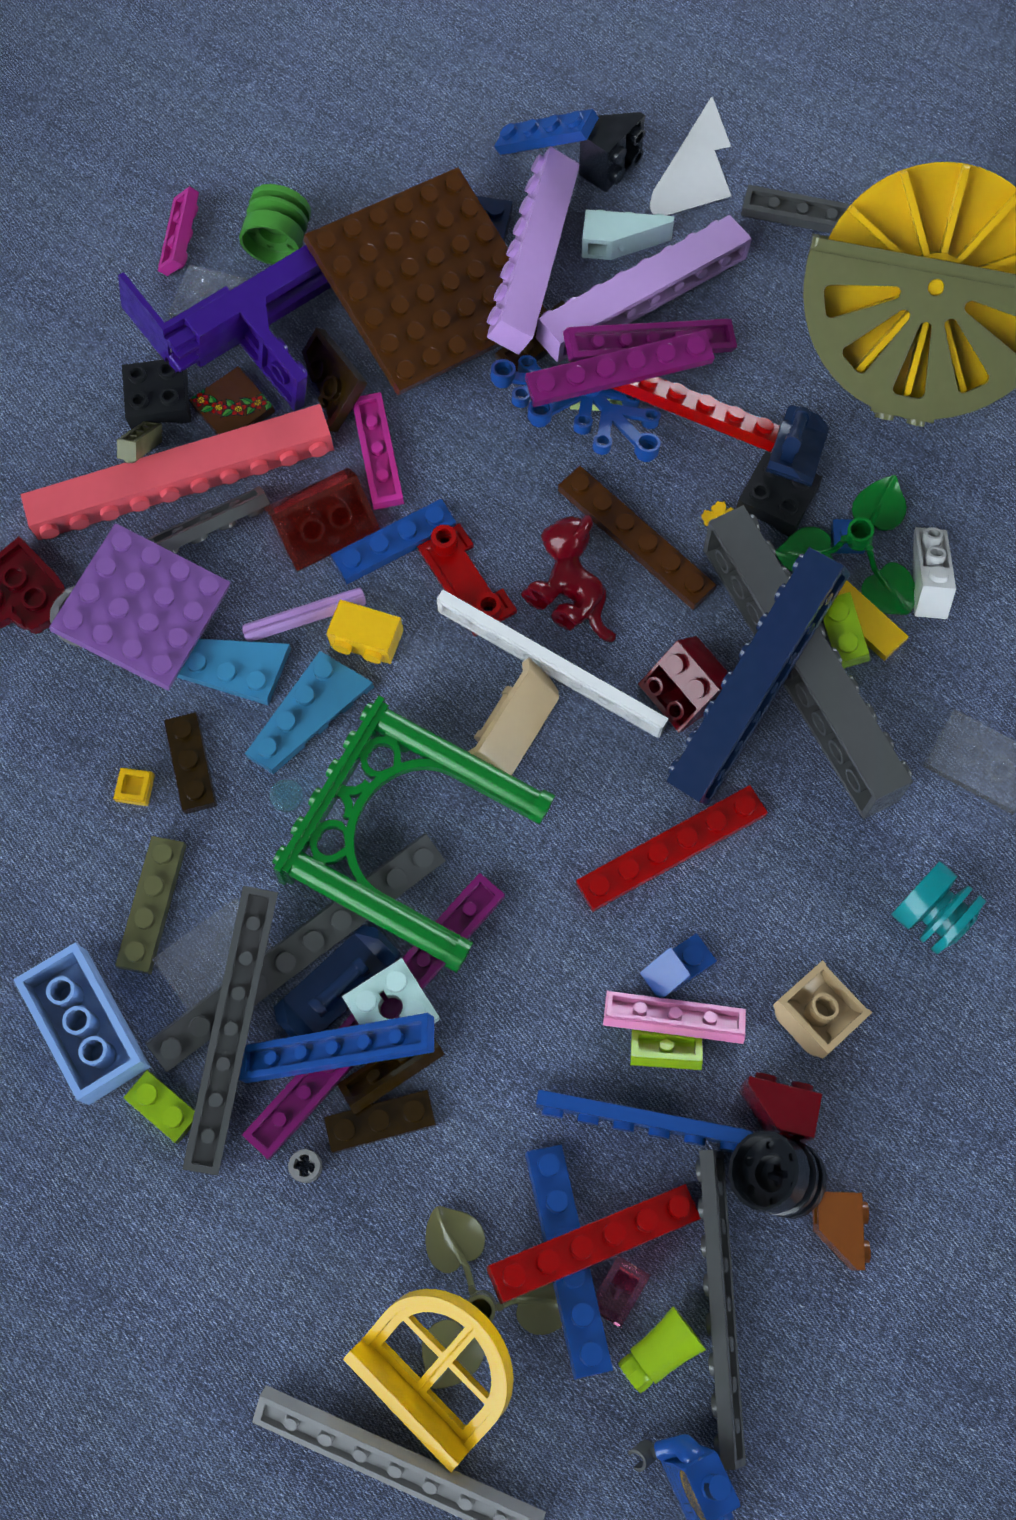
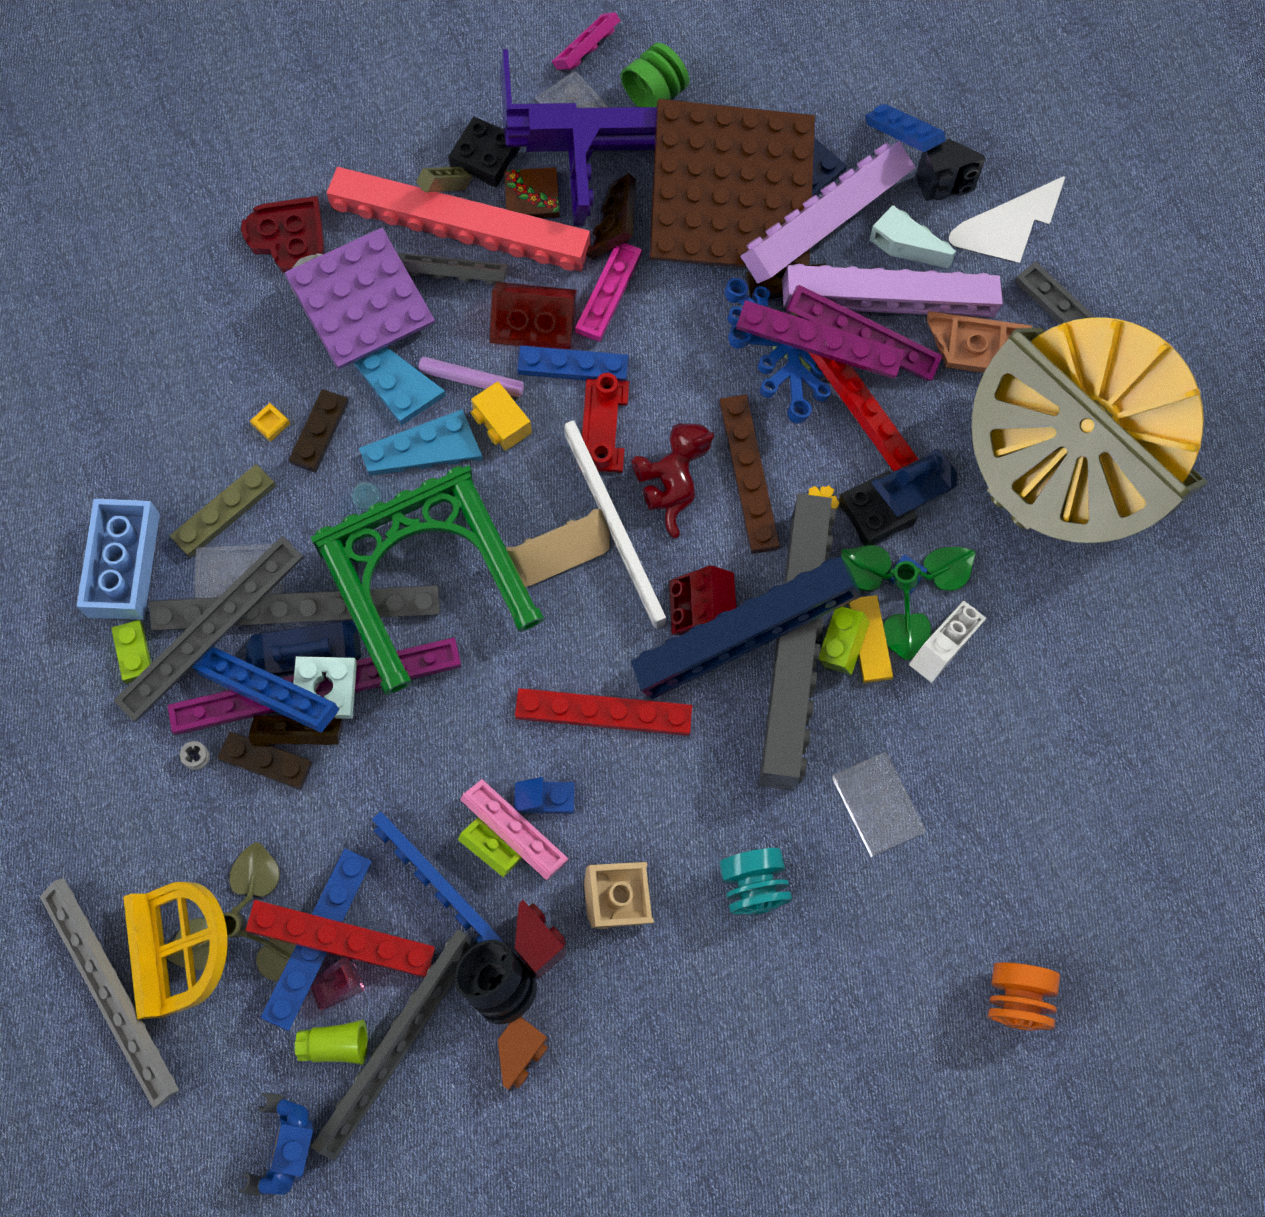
camera: 30 degrees right, 0 degrees up
(749, 289) = (968, 341): none -> nougat wing

